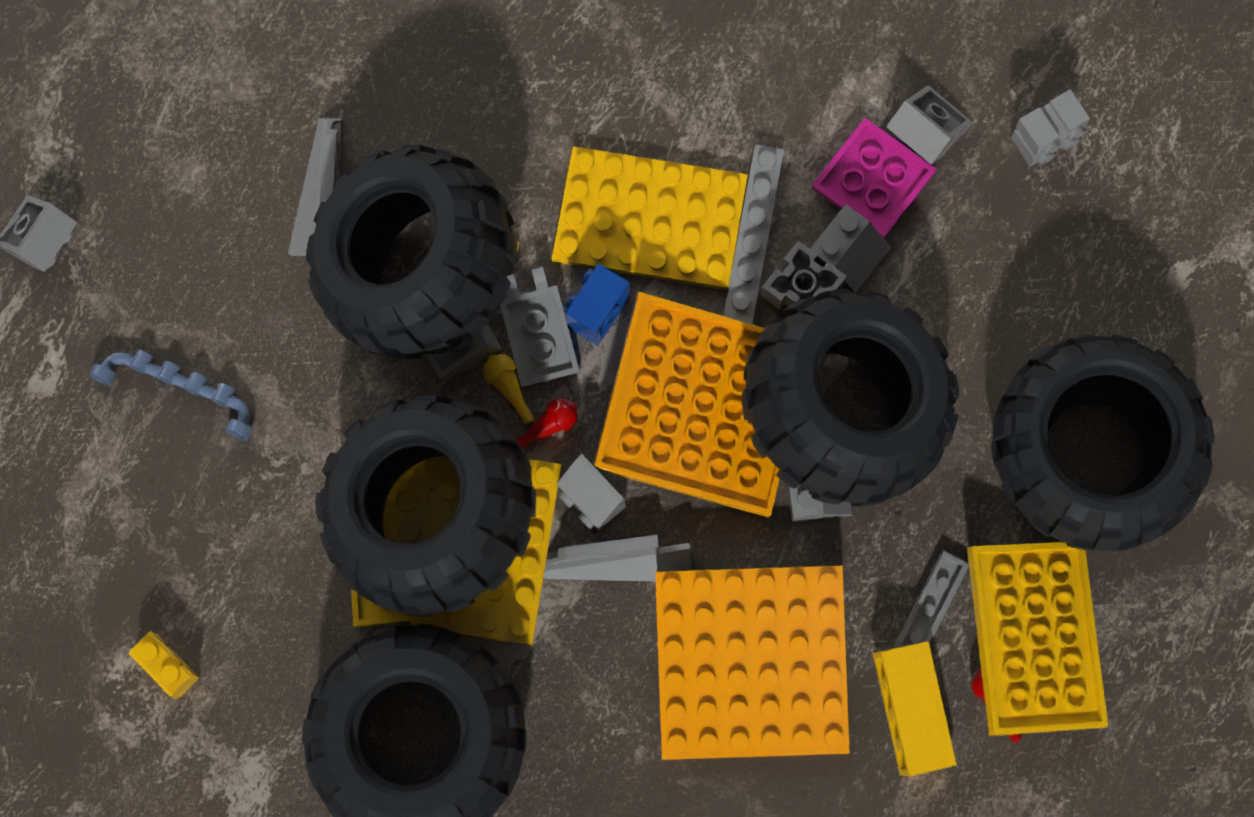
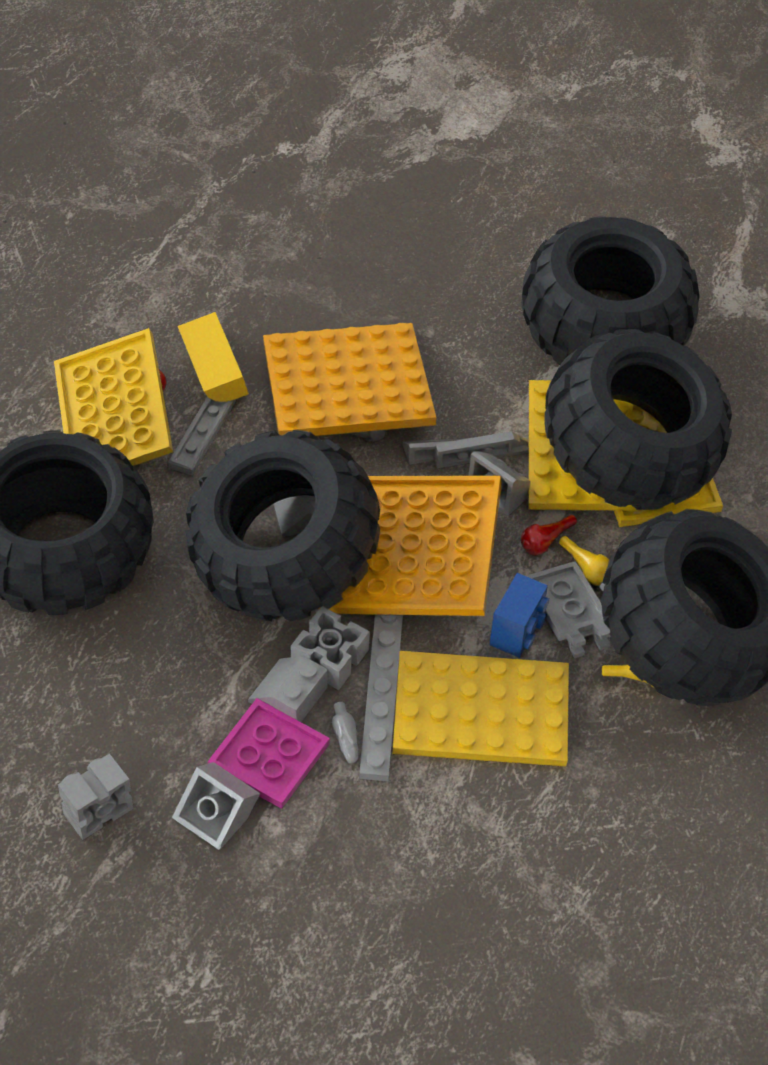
camera: 165 degrees right, 25 degrees down
(794, 198) = (345, 731): none -> light grey piece

